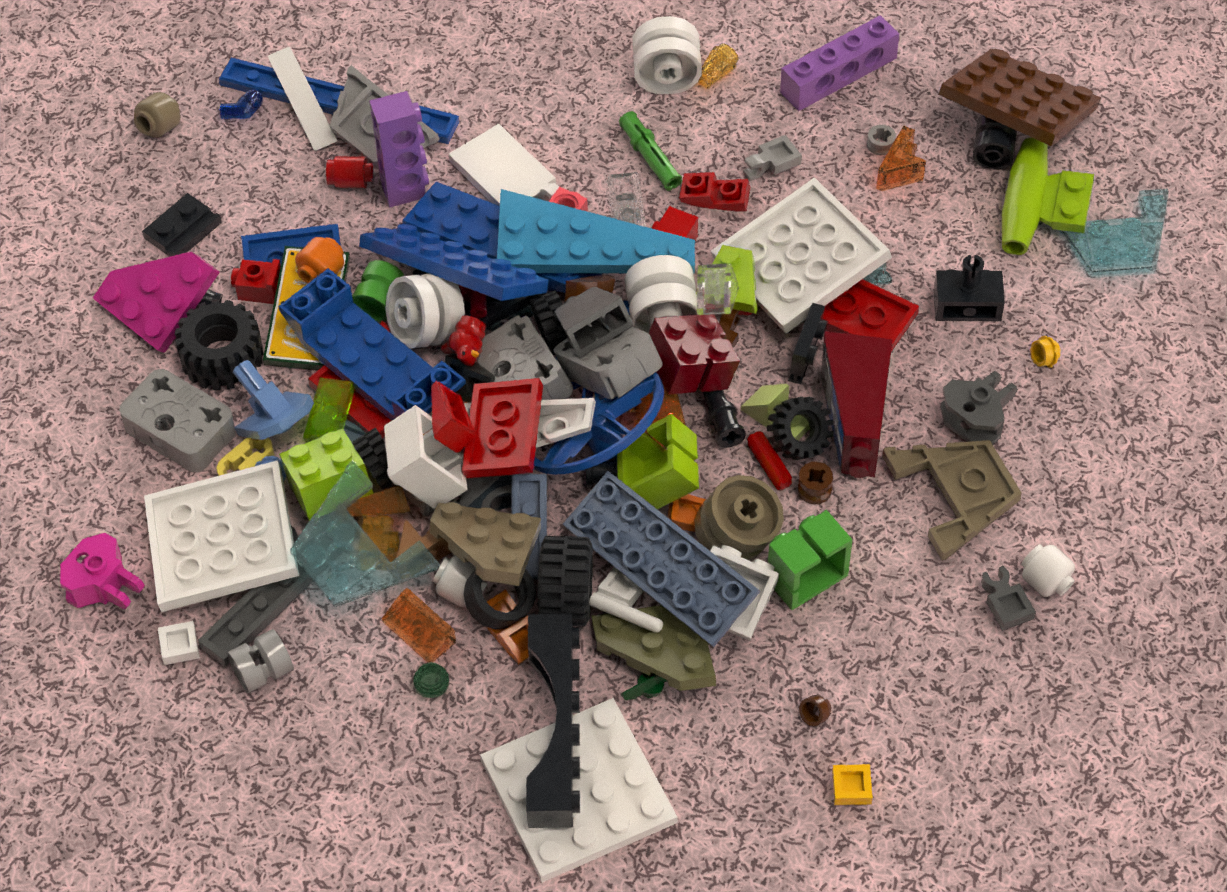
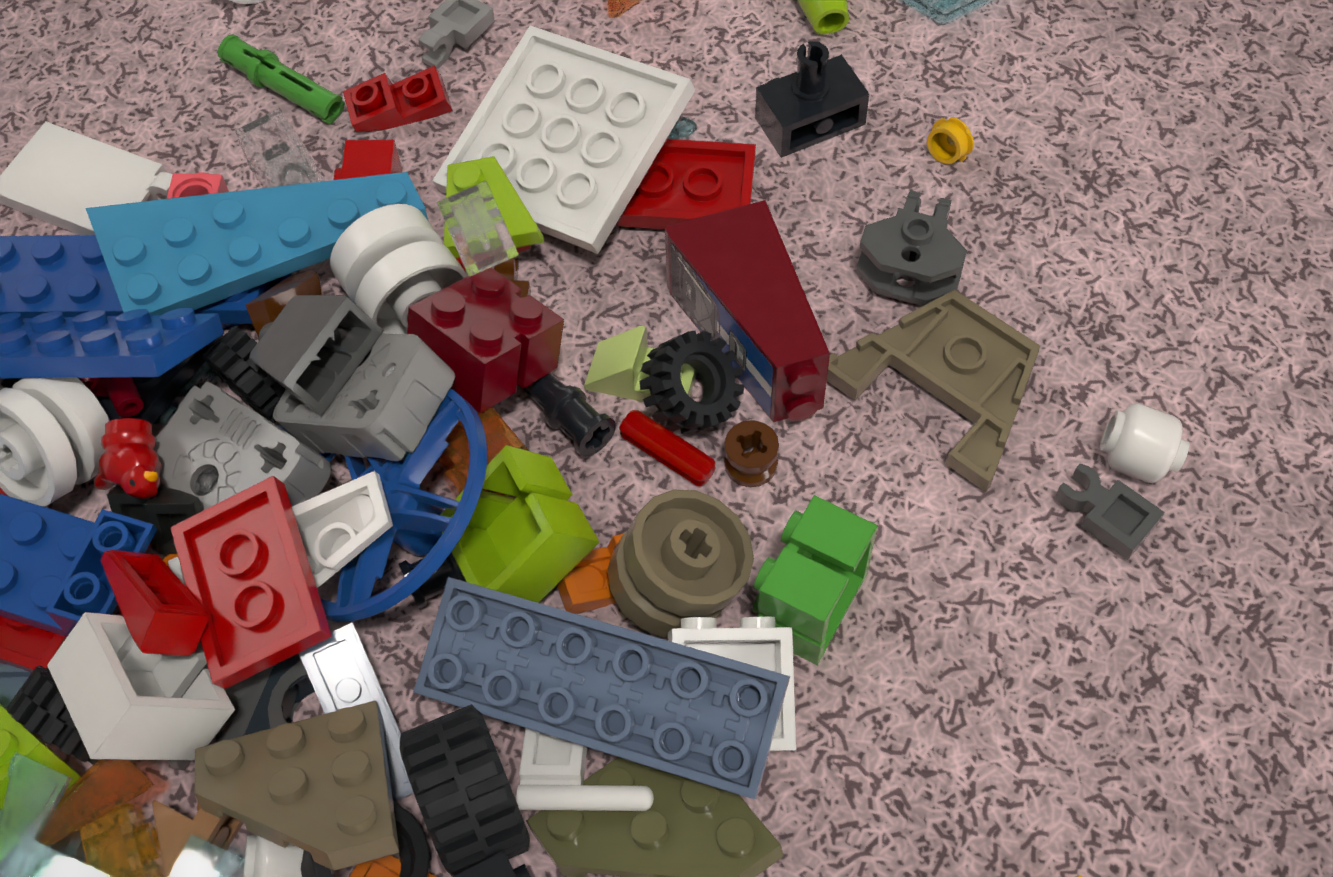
camera: 25 degrees left, 5 degrees up
(806, 348) = (638, 265): black plate -> none
(810, 706) = (941, 831): reddish brown hinge -> none

